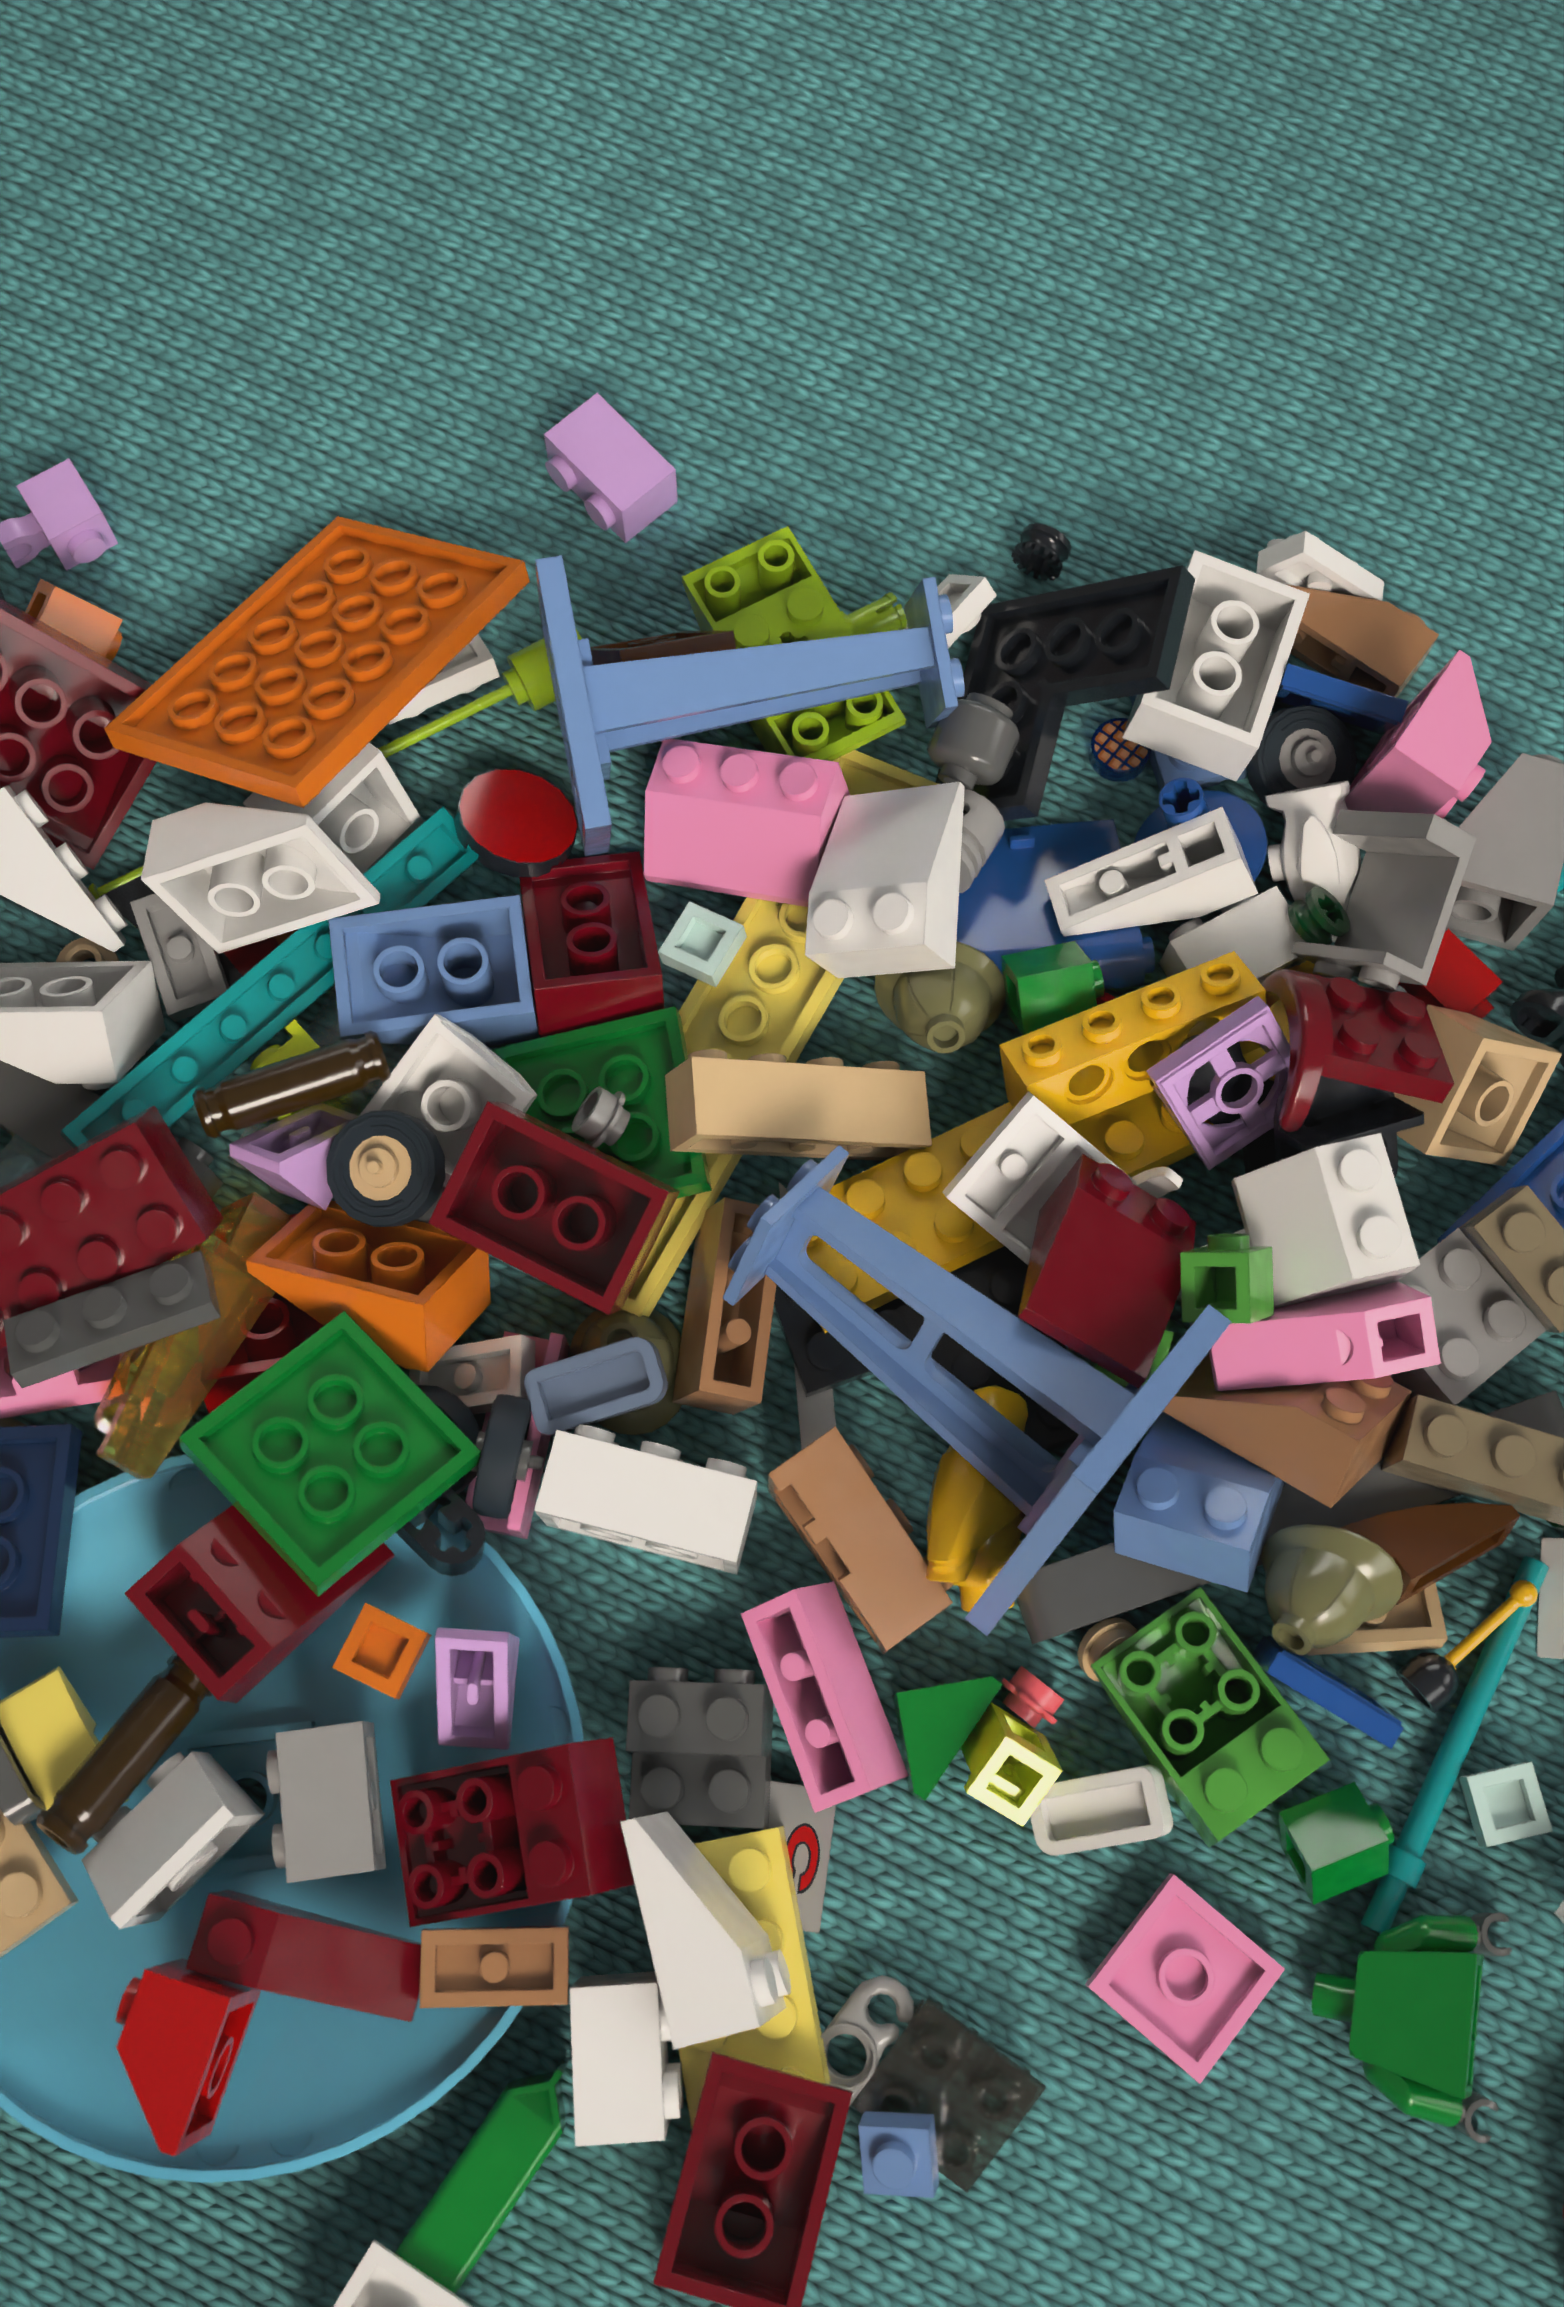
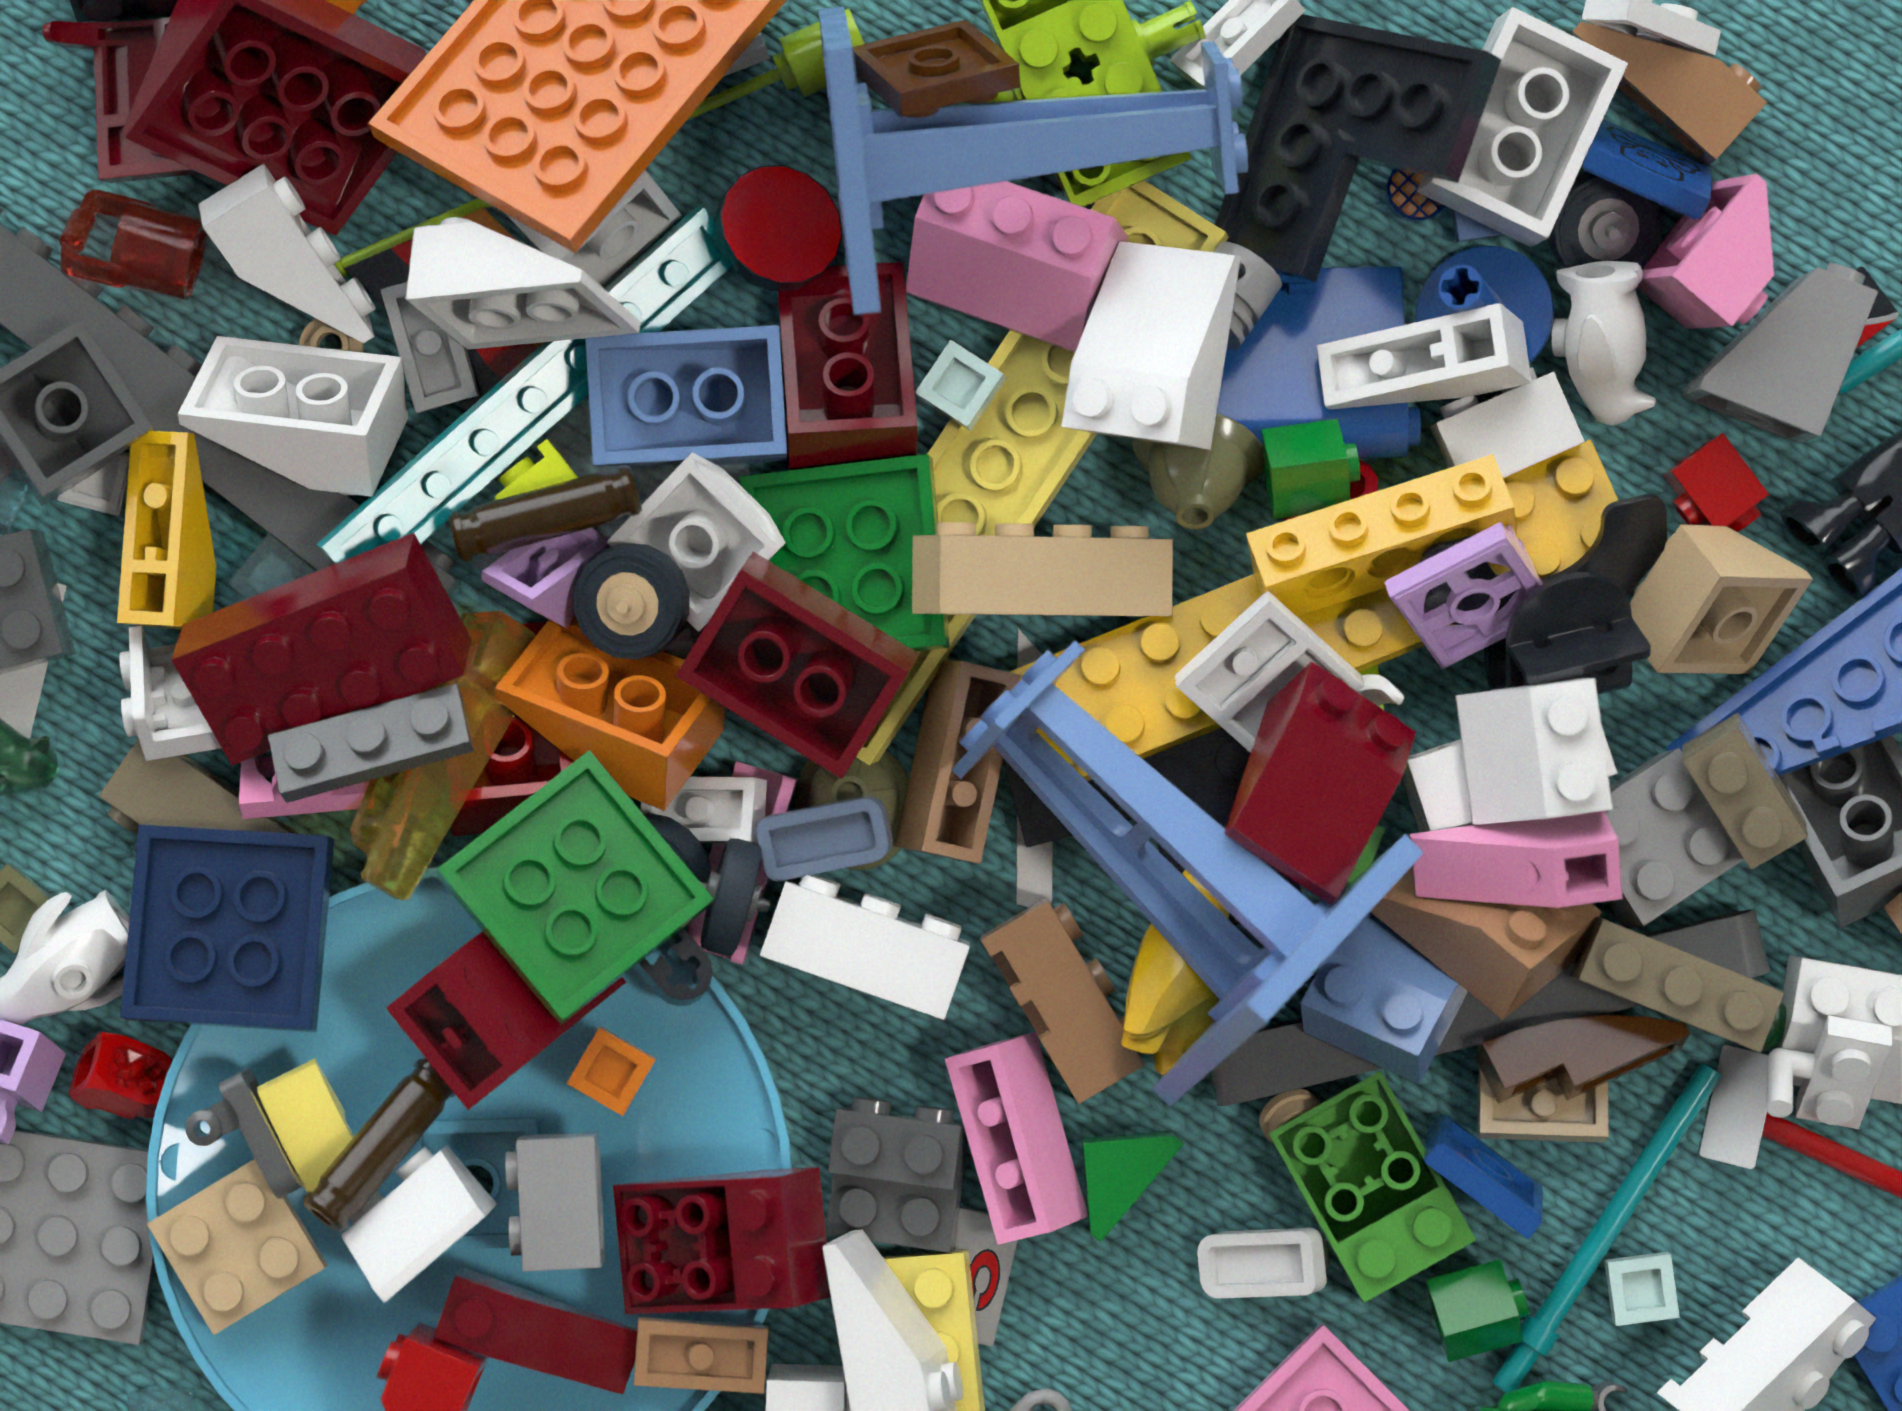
camera: 10 degrees right, 15 degrees up
(475, 1687) = (696, 1111): lavender slope -> none
(601, 1118) = (846, 572): light grey plate -> none
(974, 742) = (1265, 202): dark grey head -> none
(1009, 1764) = (1182, 1215): neon yellow brick -> none
(1031, 1698) = (1211, 1154): coral plate -> none
(1229, 1278) = (1431, 805): bright green brick -> none
(1318, 917) = (1590, 412): dark green bush -> none
(1325, 1585) = (1490, 1087): olive hat -> none
(1355, 1038) = (1594, 565): dark red piece -> none
(1398, 898) = (1662, 420): light grey panel -> none
(1434, 1676) = (1594, 1167): hinge -> none

